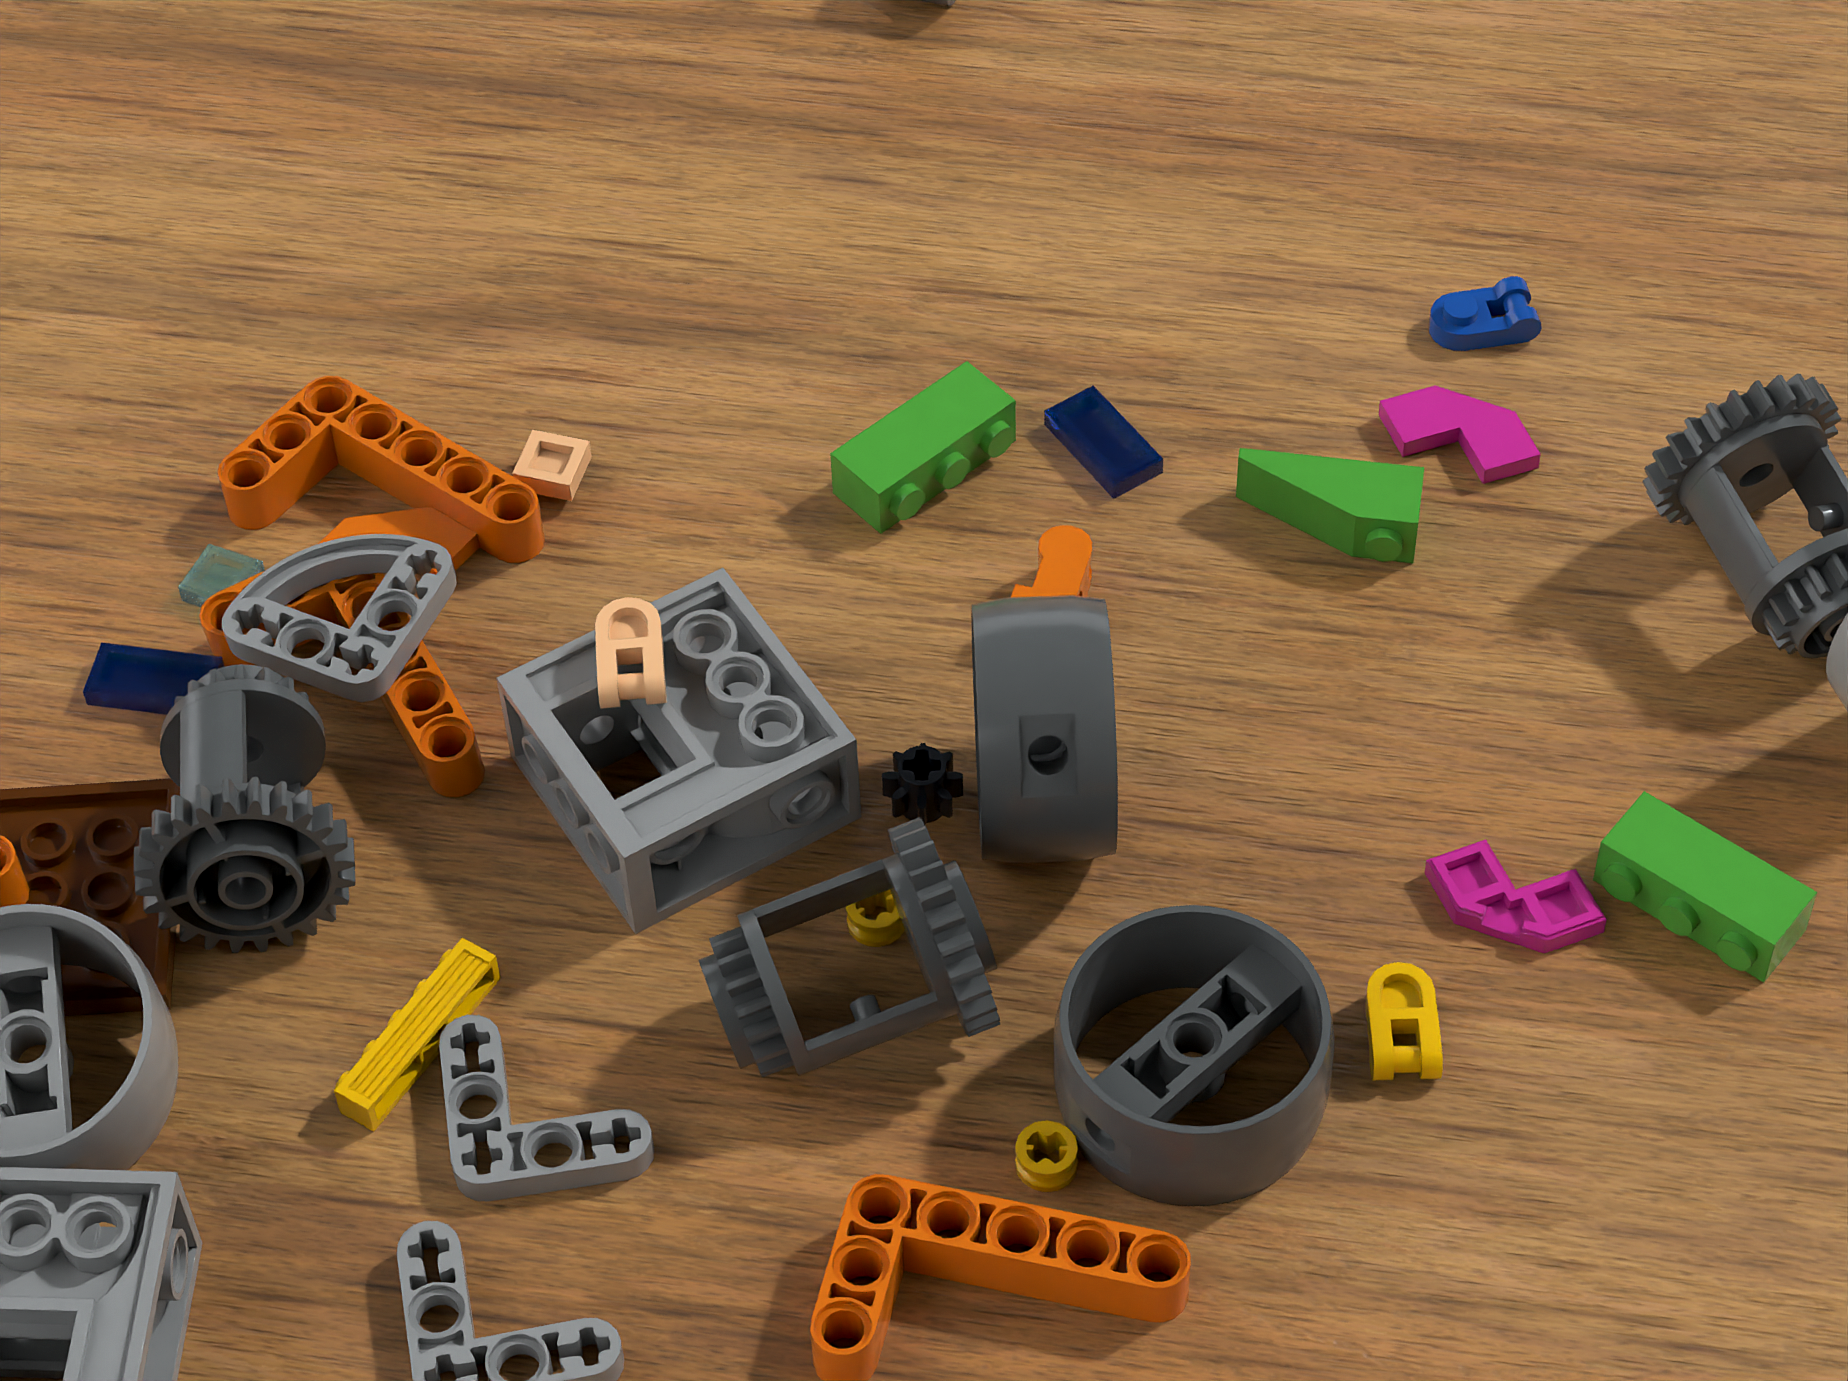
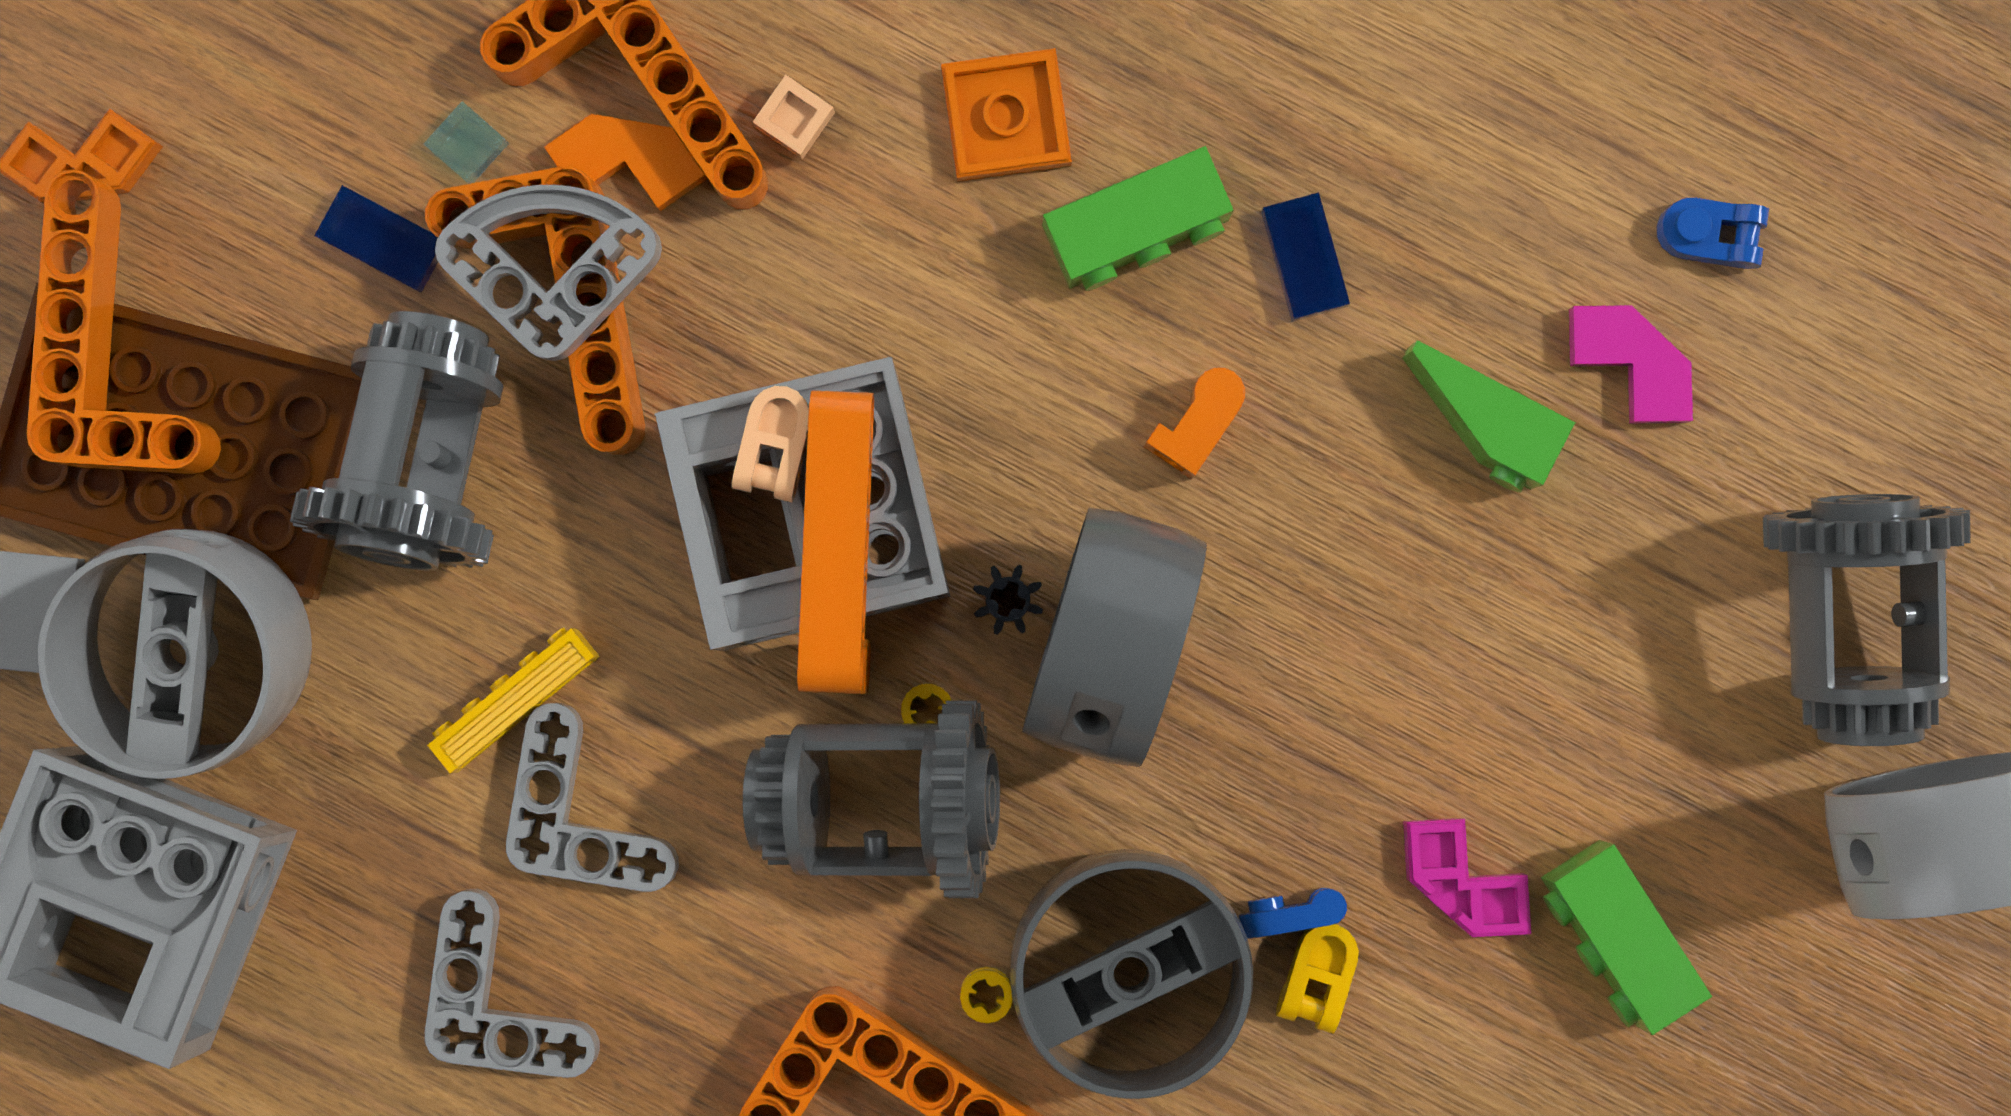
camera: 15 degrees right, 35 degrees up
(733, 745) = (836, 544): none -> orange beam
(762, 415) = (1006, 115): none -> orange tile
(1350, 965) = (1271, 917): none -> blue plate

